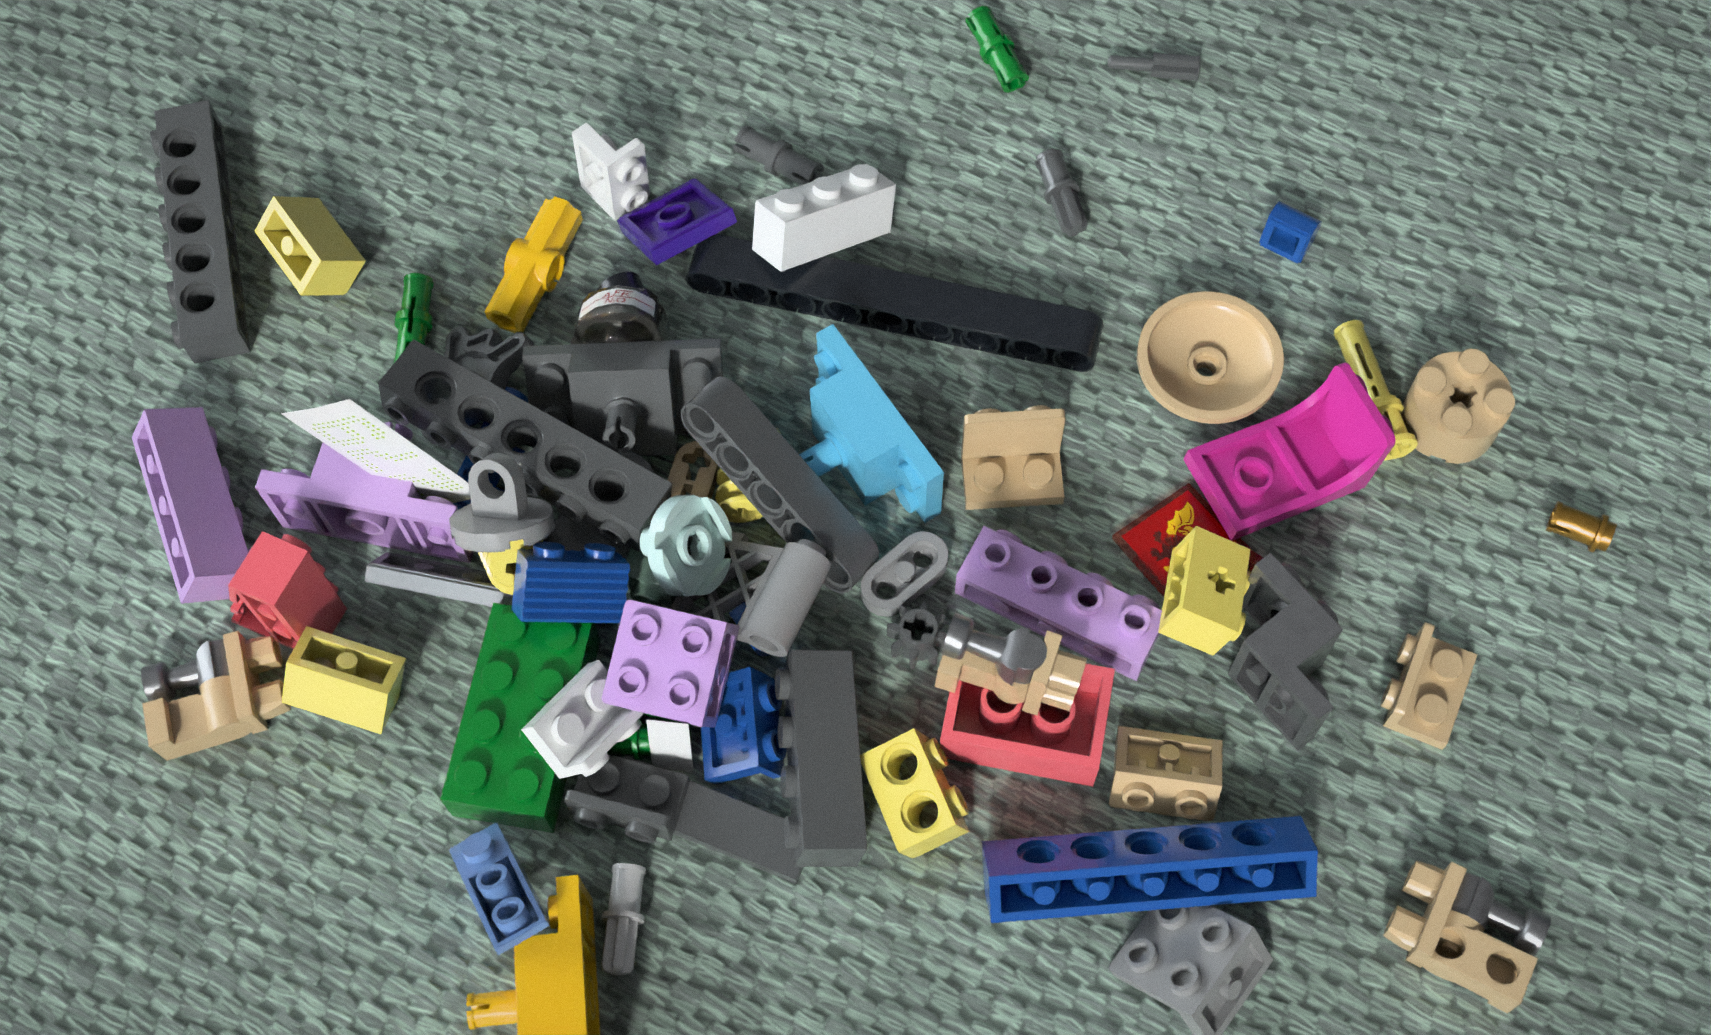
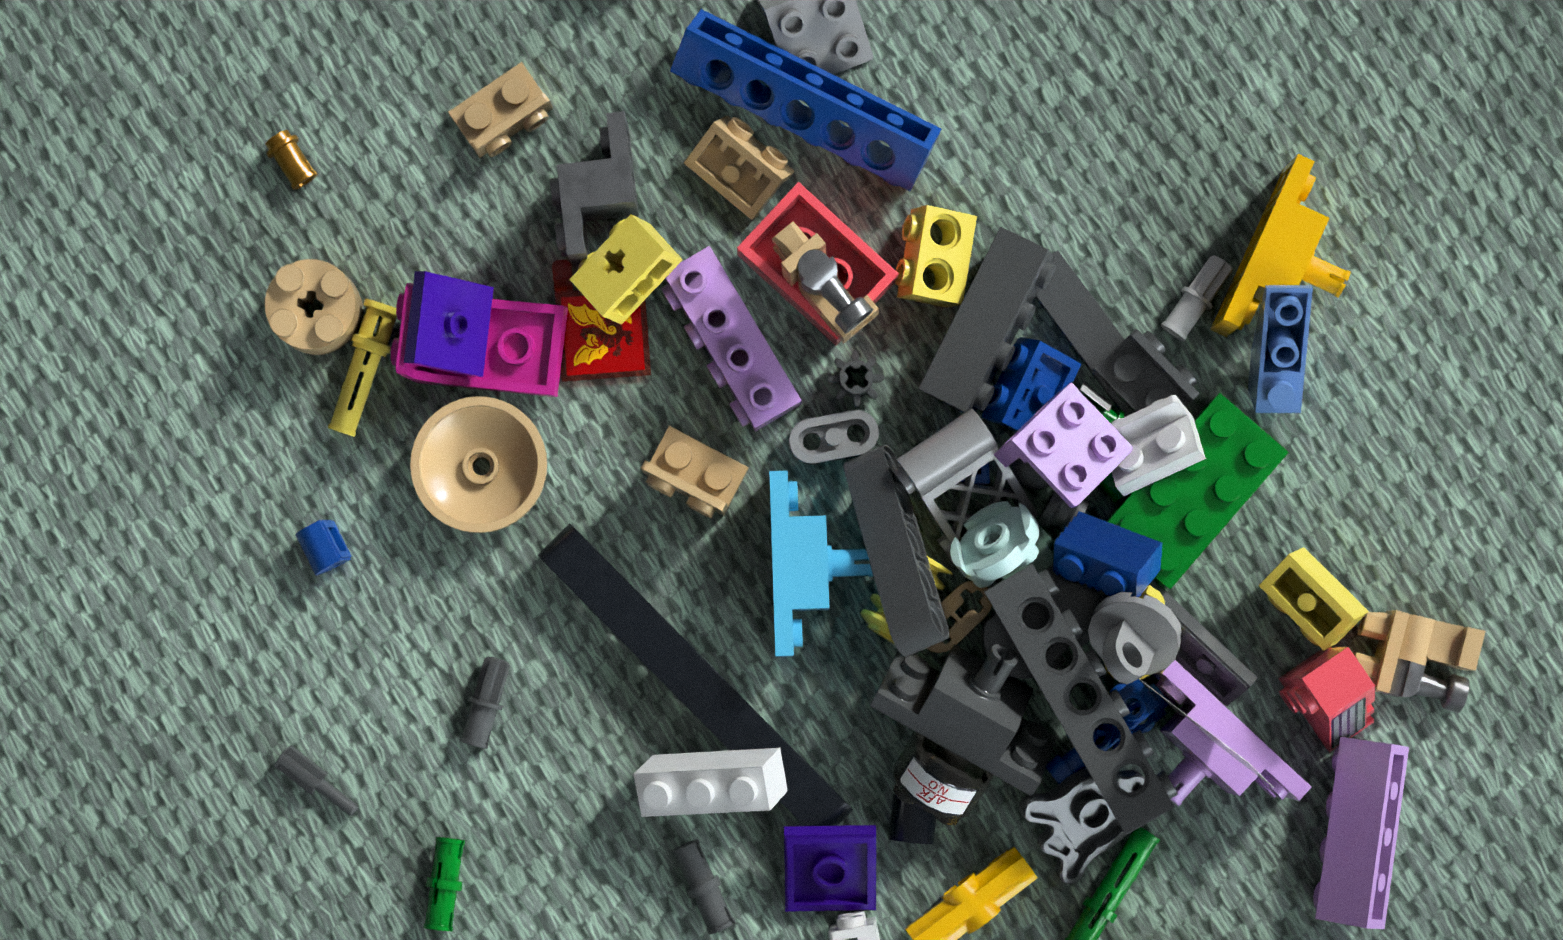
camera: 150 degrees left, 20 degrees up
(1329, 438) = (448, 324): none -> dark purple plate

